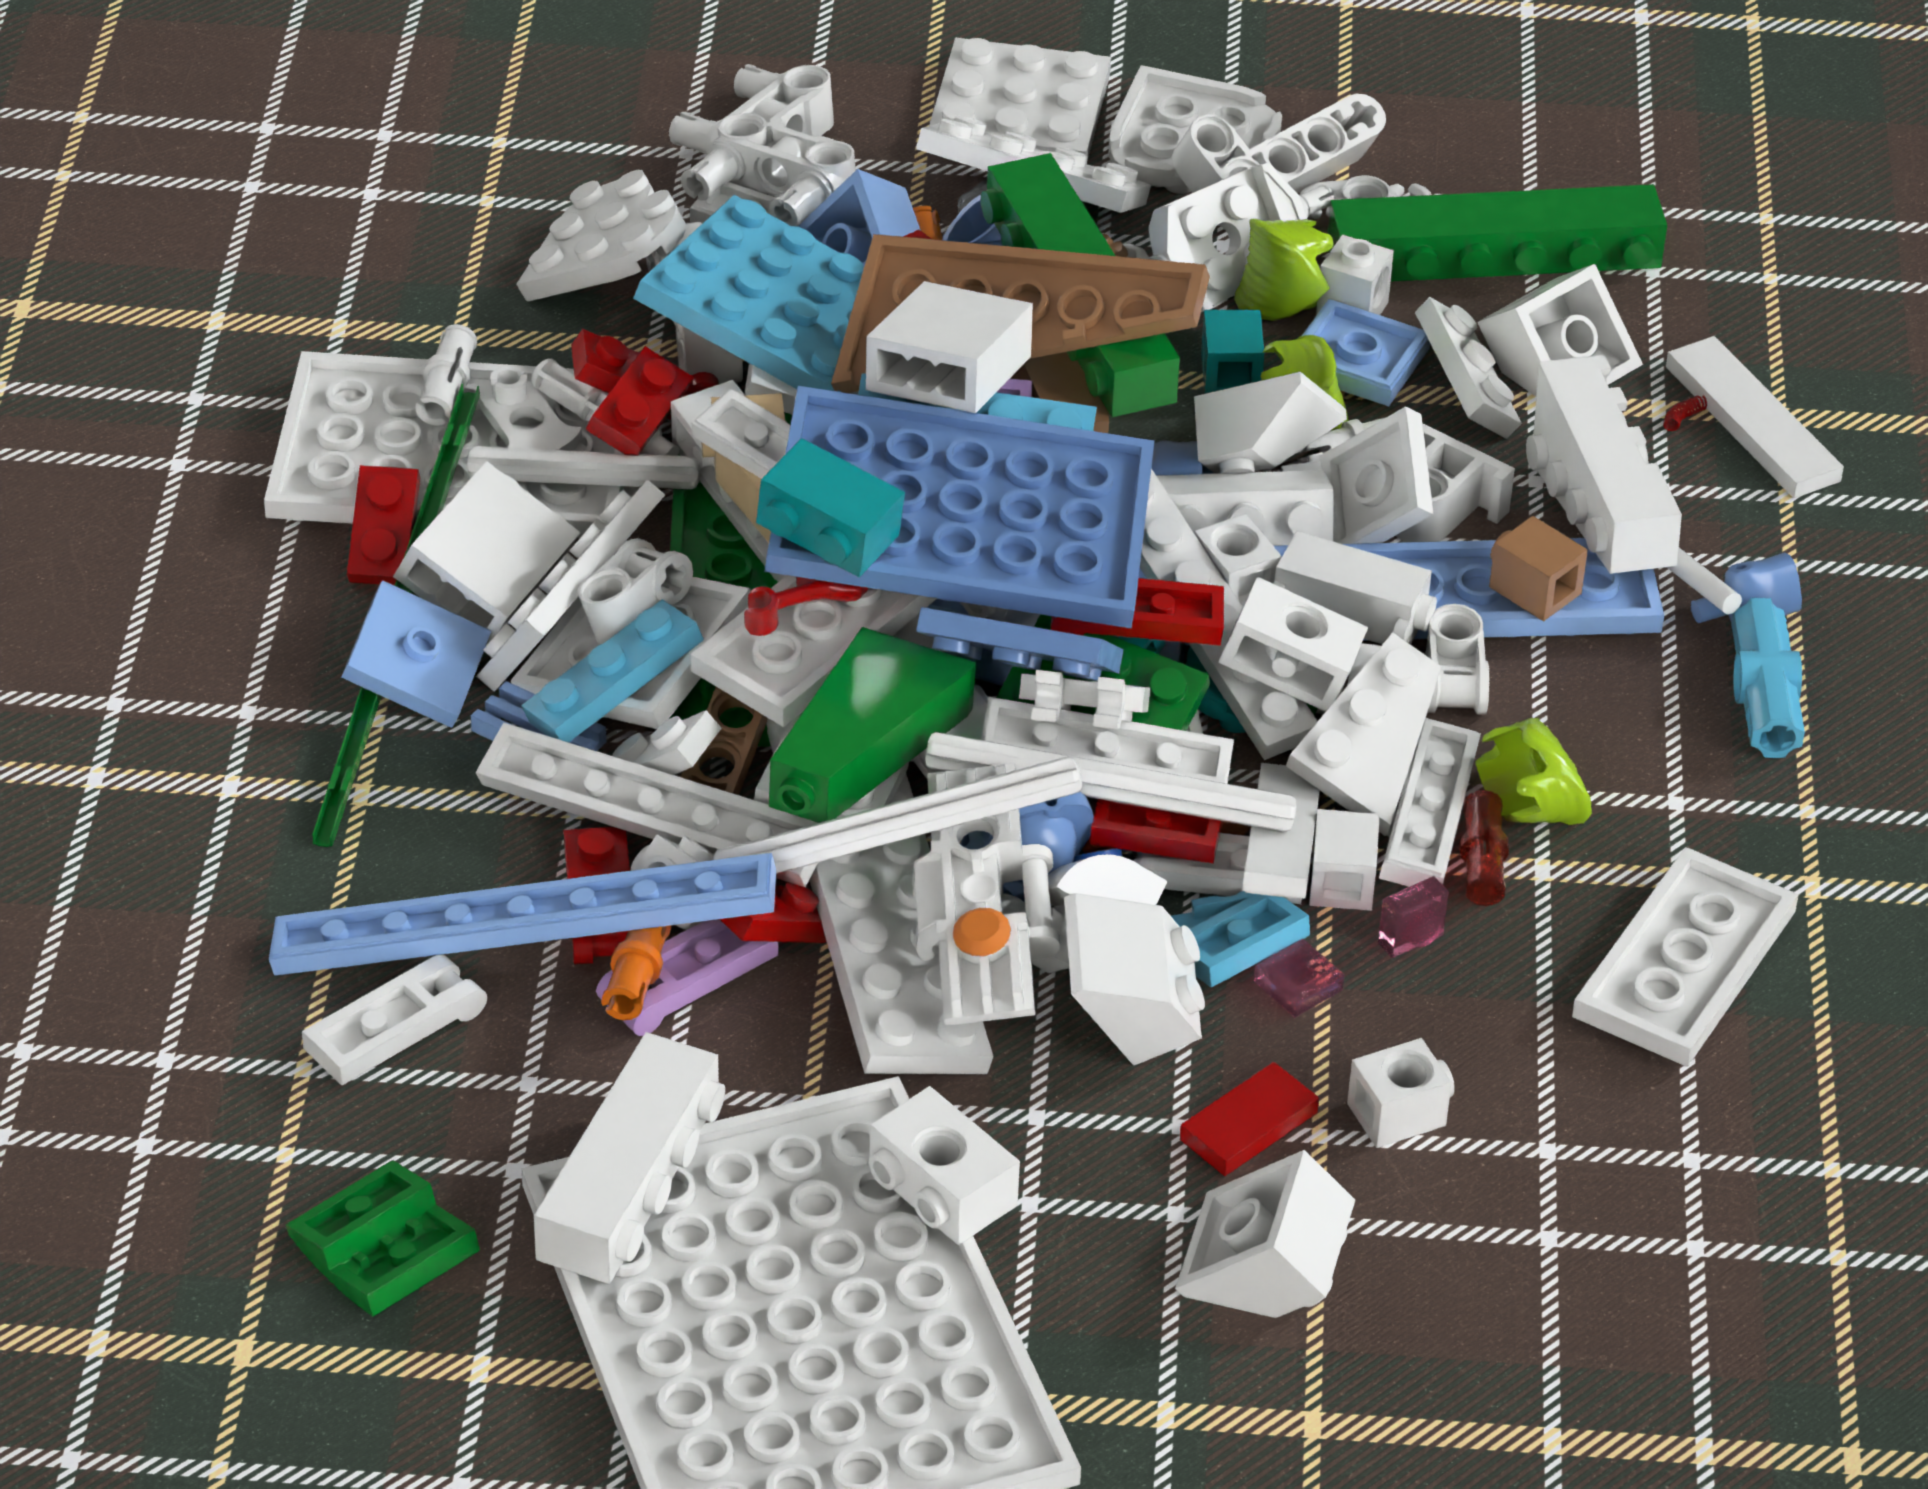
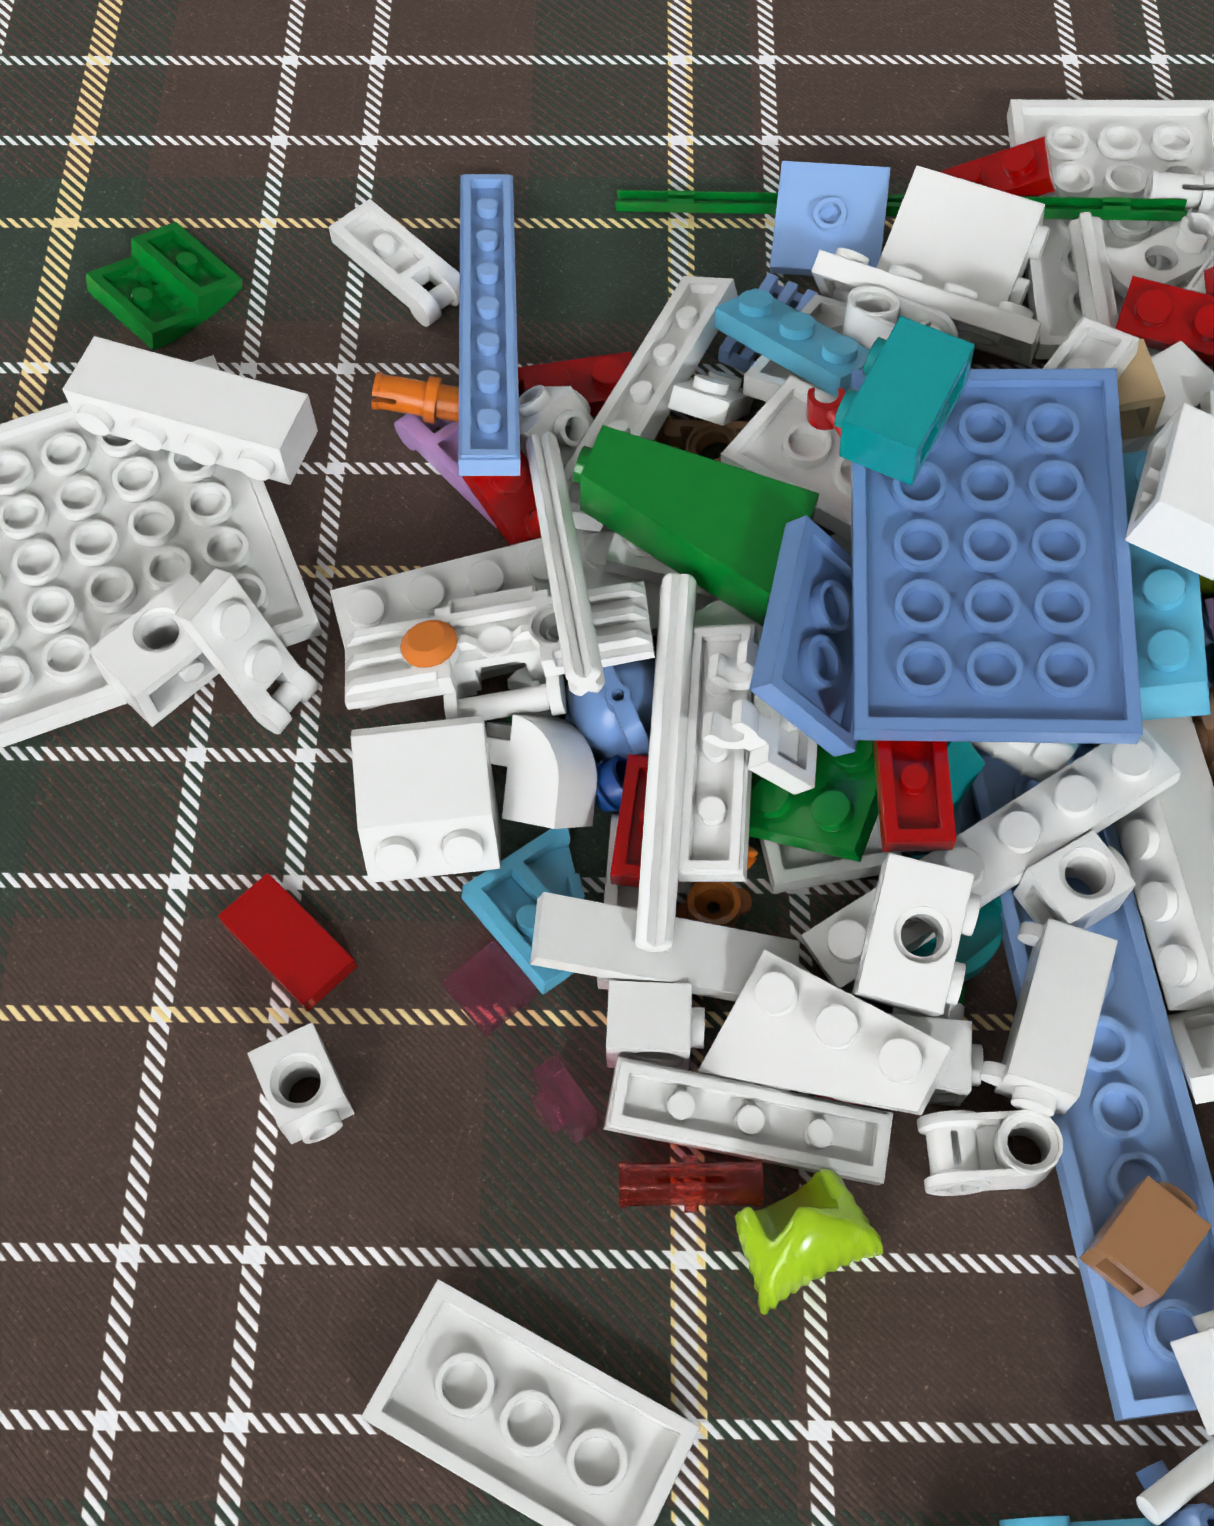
camera: 90 degrees right, 20 degrees up
(955, 1076) = (245, 650): none -> white plate
(1268, 1239) = (98, 956): white slope -> none

